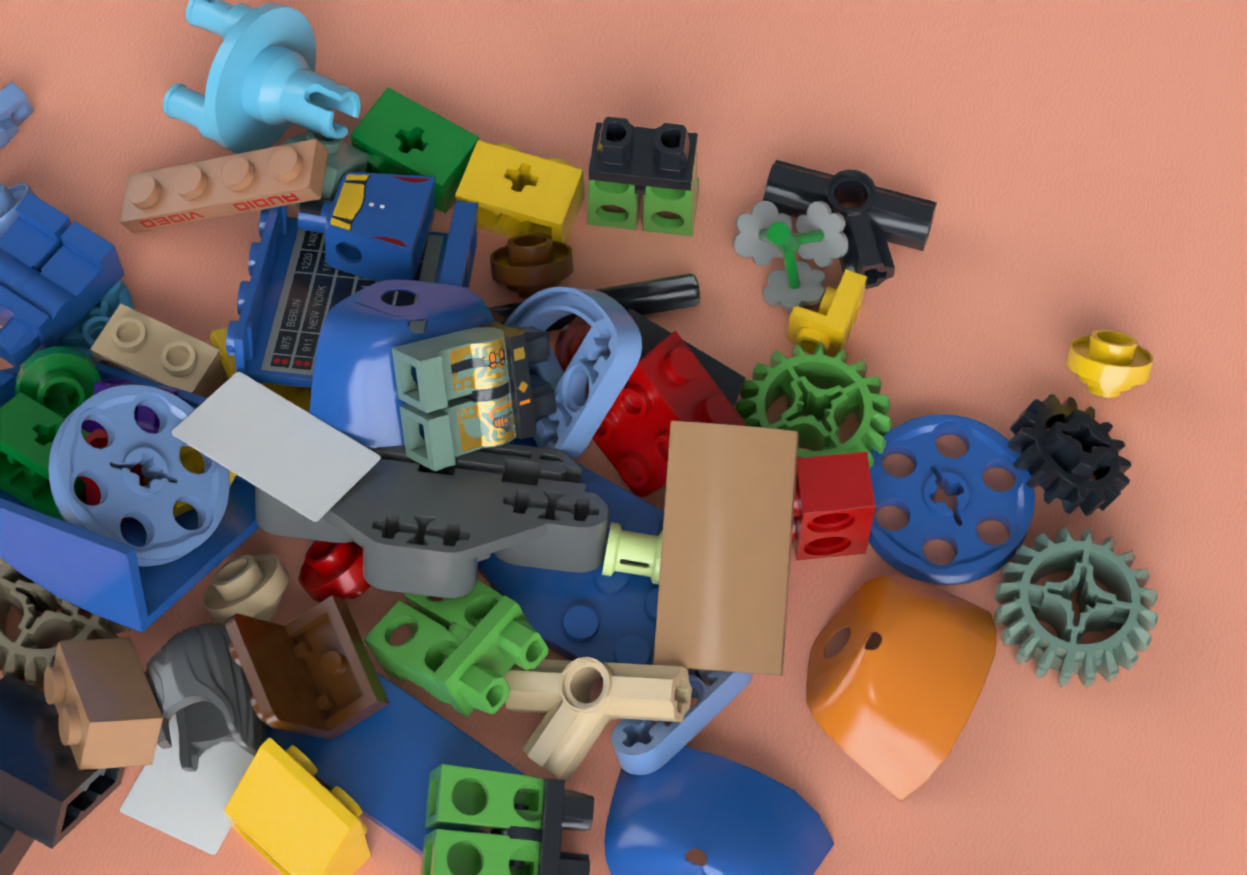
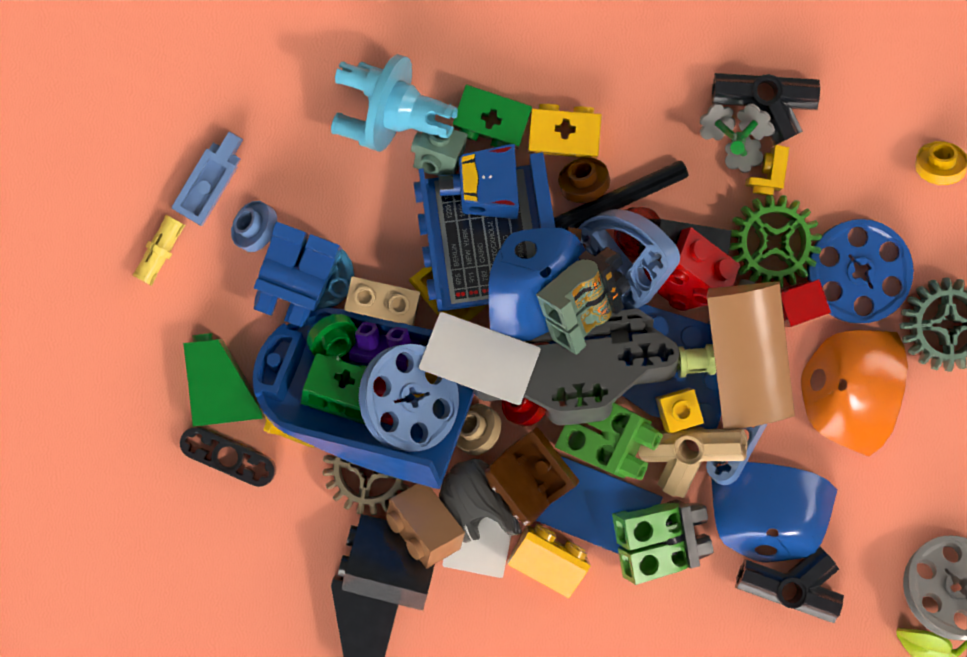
camera: 15 degrees left, 25 degrees up
(225, 186) = (387, 179): nougat plate -> none
(587, 618) = (679, 410): none -> yellow brick
(648, 163) = (639, 111): hips -> none
(1069, 455) = (929, 232): black gear -> none

